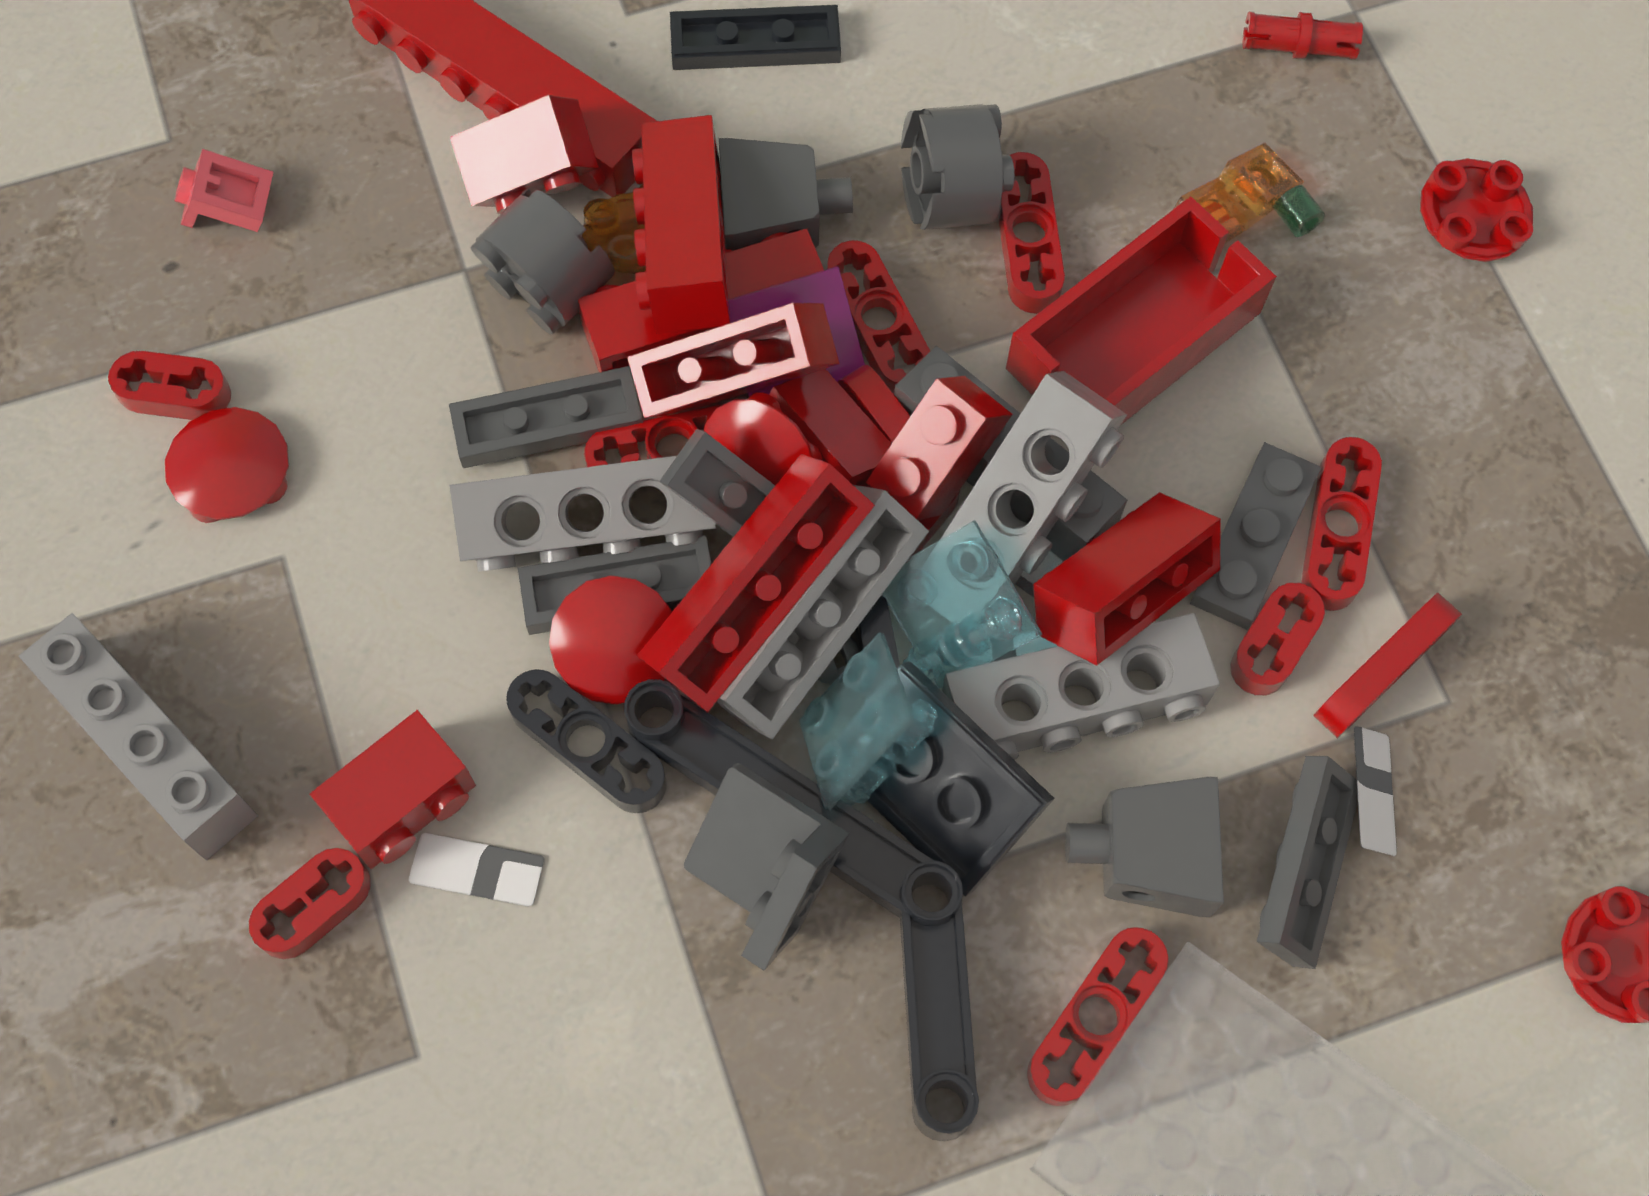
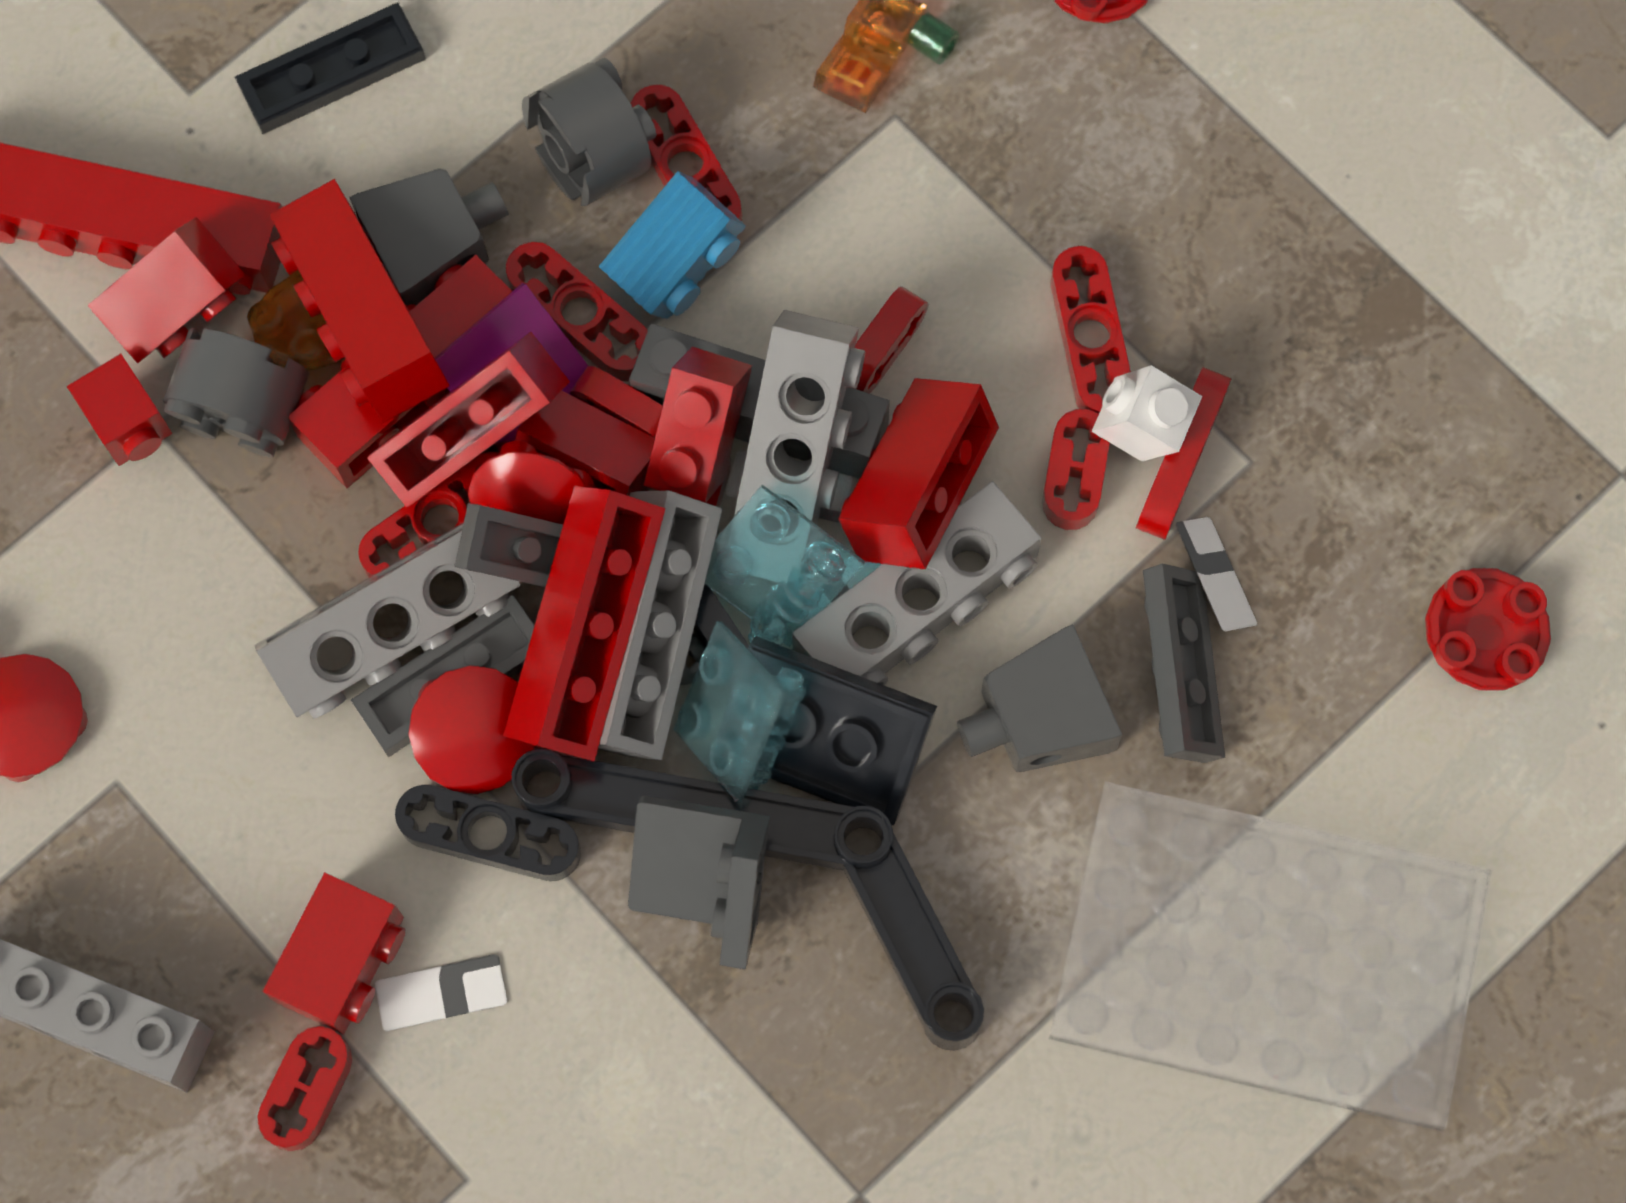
camera: 20 degrees left, 5 degrees up
(437, 239) = (120, 411): none -> red brick
(543, 416) = (305, 542): dark grey plate -> none
(985, 292) = (674, 247): none -> dark azure brick
(1140, 986) = (1046, 831): red beam -> none
(1145, 312) = (830, 211): red piece -> none
(1149, 448) = (889, 335): none -> red beam
(1257, 535) = (1019, 376): dark grey plate -> none
(1368, 611) = (1146, 413): none -> white brick

